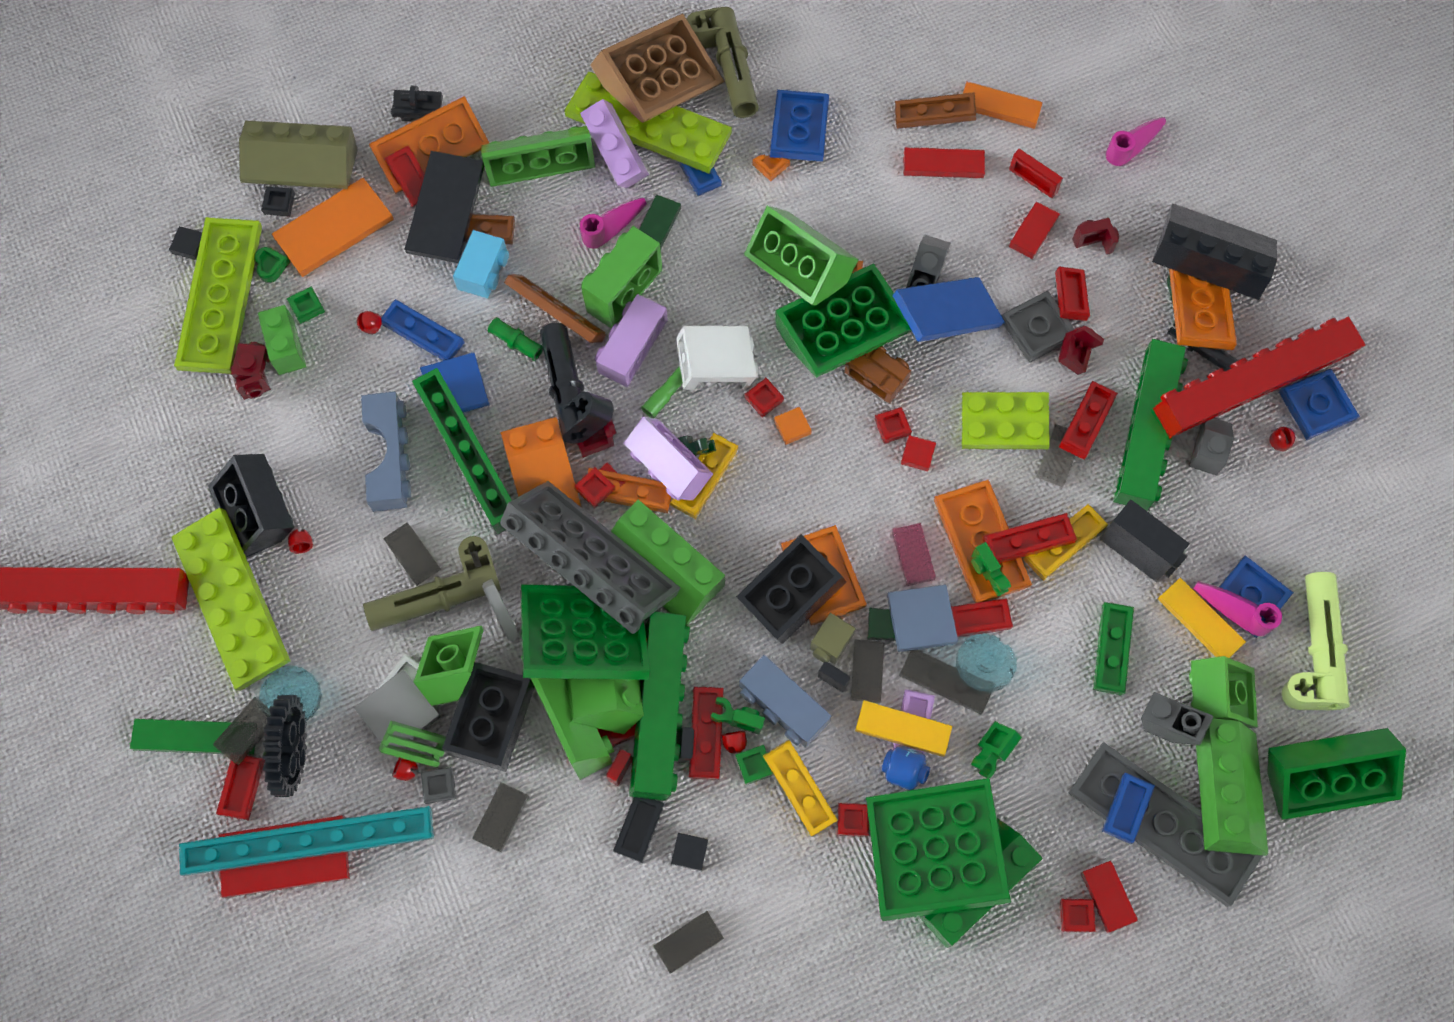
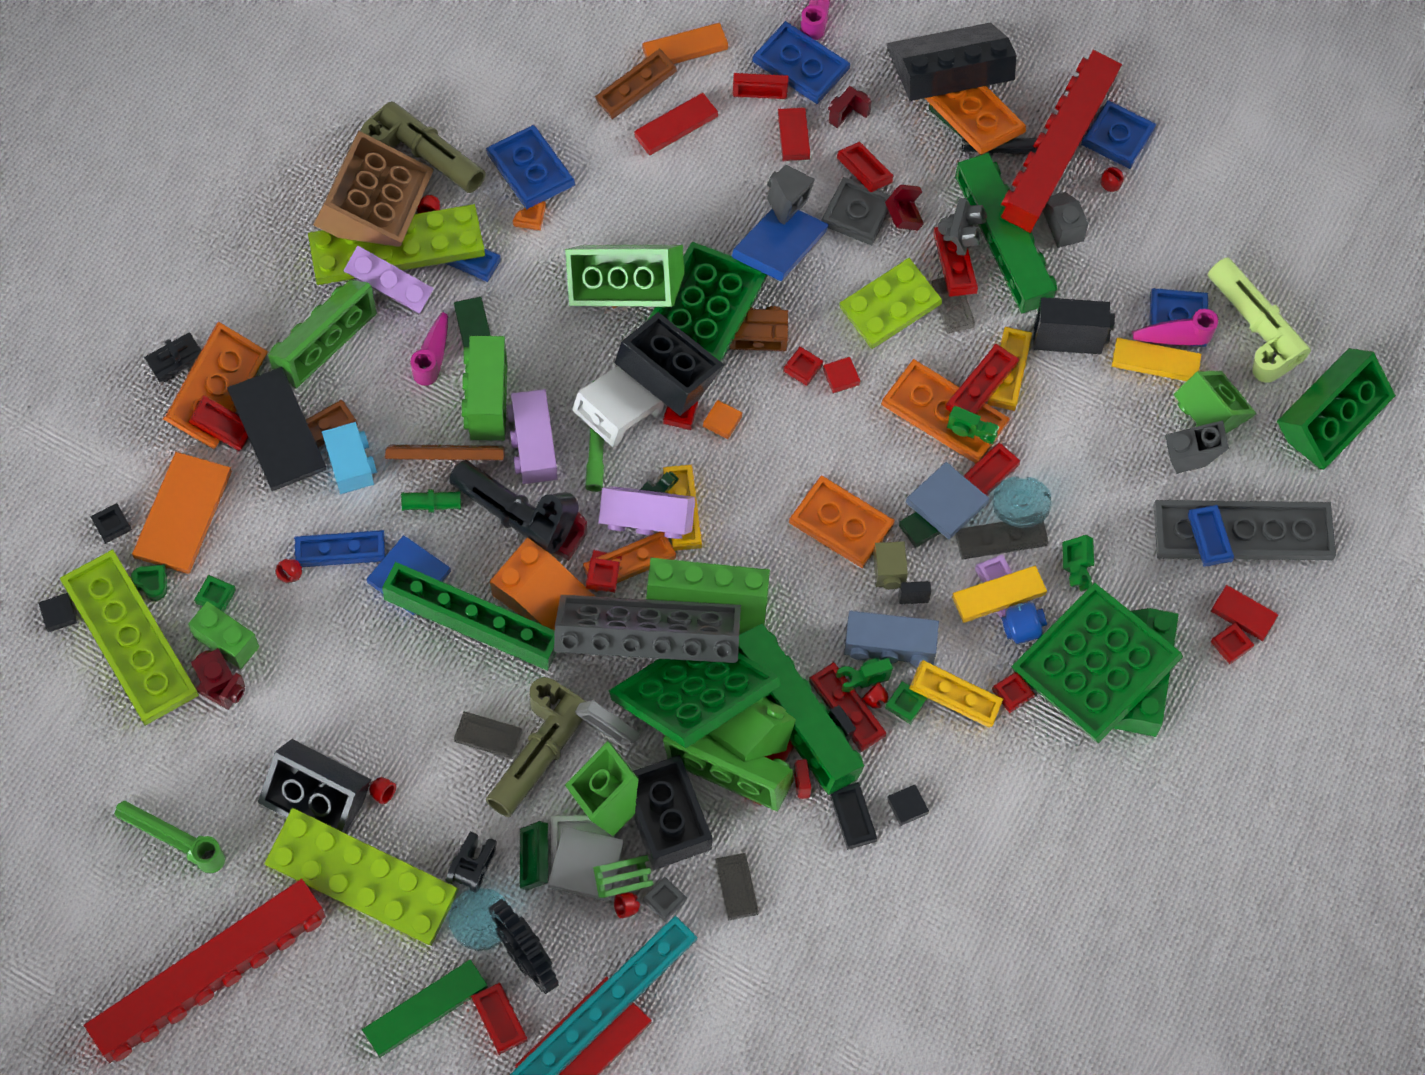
camera: 40 degrees left, 5 degrees down
(132, 487) = (174, 837): none -> bright green axle
(244, 732) = (470, 968): clear smoke tile -> none
(296, 154) = (100, 469): olive slope -> none
(303, 649) = (471, 871): none -> black piece
(365, 675) = (534, 855): none -> dark green tile
(387, 483) = (371, 641): sand blue arch -> none
(688, 942) = (961, 872): clear smoke tile -> none
(698, 105) = (428, 203): none -> red hinge
(774, 349) = (668, 363): none -> black slope
(791, 589) = (831, 544): black brick -> none
(867, 671) = (933, 567): clear smoke tile -> none
(913, 554) = (900, 457): clear pink tile -> none
(928, 261) = (731, 216): dark grey slope -> none
(989, 274) = (788, 192): none -> dark grey slope
(1087, 175) = (810, 65): none -> blue tile
(1111, 394) = (960, 228): none -> dark grey hips
(1113, 648) = (1108, 426): green tile -> none
(1231, 789) = (1273, 470): bright green slope -> none

